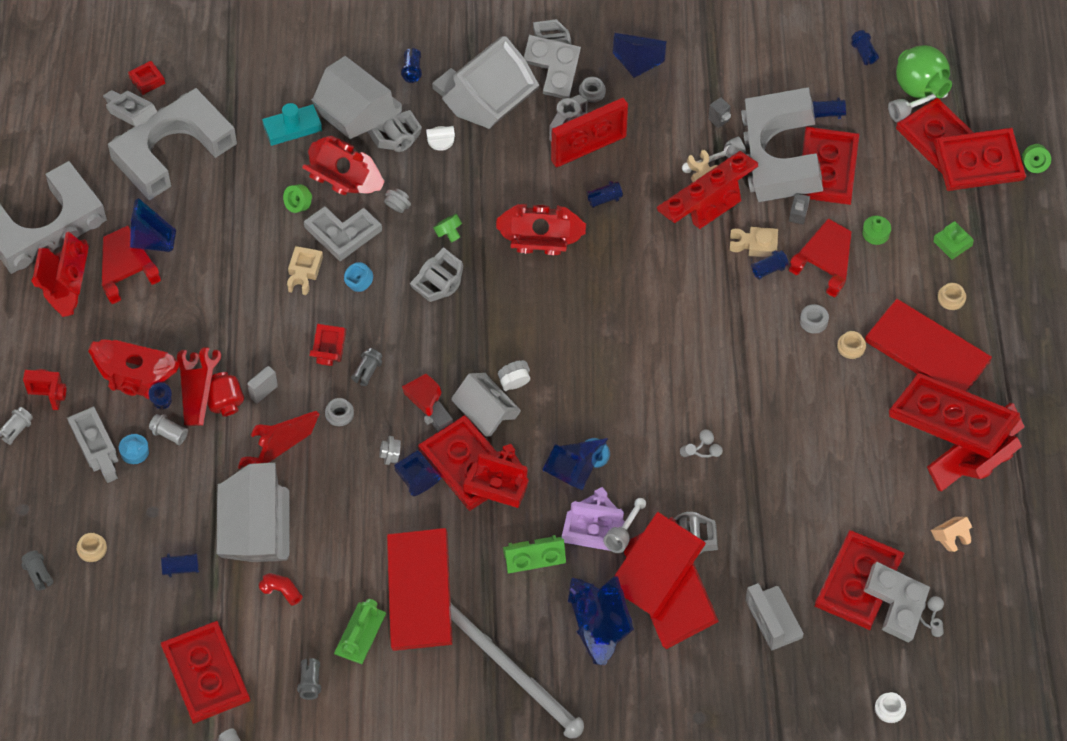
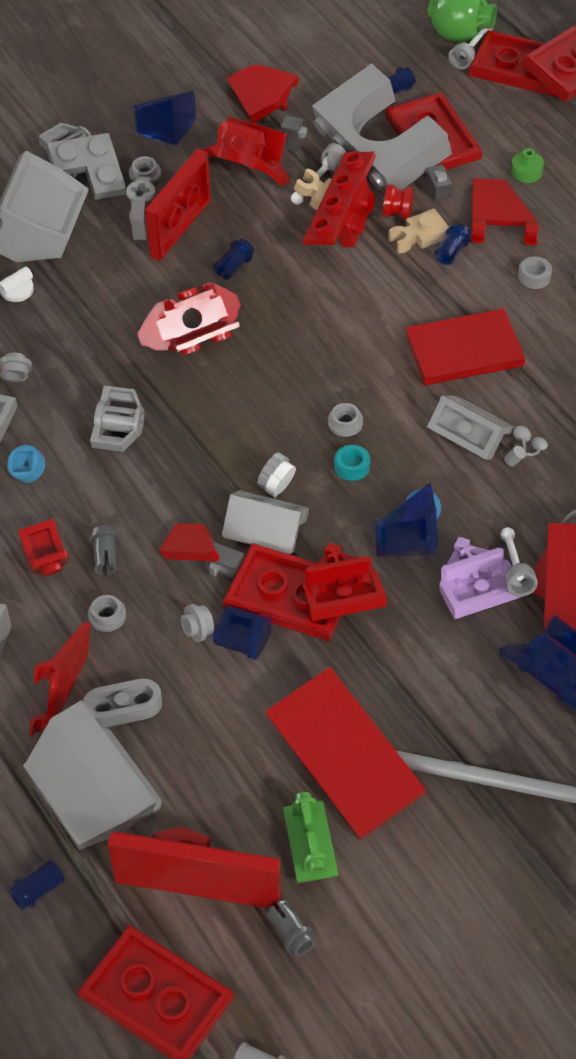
camera: 30 degrees left, 5 degrees down
(272, 609) = (195, 870): none -> red tile
(308, 478) = (124, 701): none -> light grey plate
(448, 227) = (91, 366): bright green tile -> none
(528, 556) = (446, 641): bright green hinge -> none
(575, 394) = (352, 462): none -> teal tile
(595, 354) = (345, 420): none -> light grey plate
(674, 410) = (468, 426): none -> light grey panel
(677, 110) = (251, 146): none -> red piece
(718, 349) = (464, 346): none -> red tile
(725, 64) = (262, 89): none -> red slope
(754, 210) = (398, 201): none -> red wheel
(862, 42) = (384, 18): clear blue pin -> none

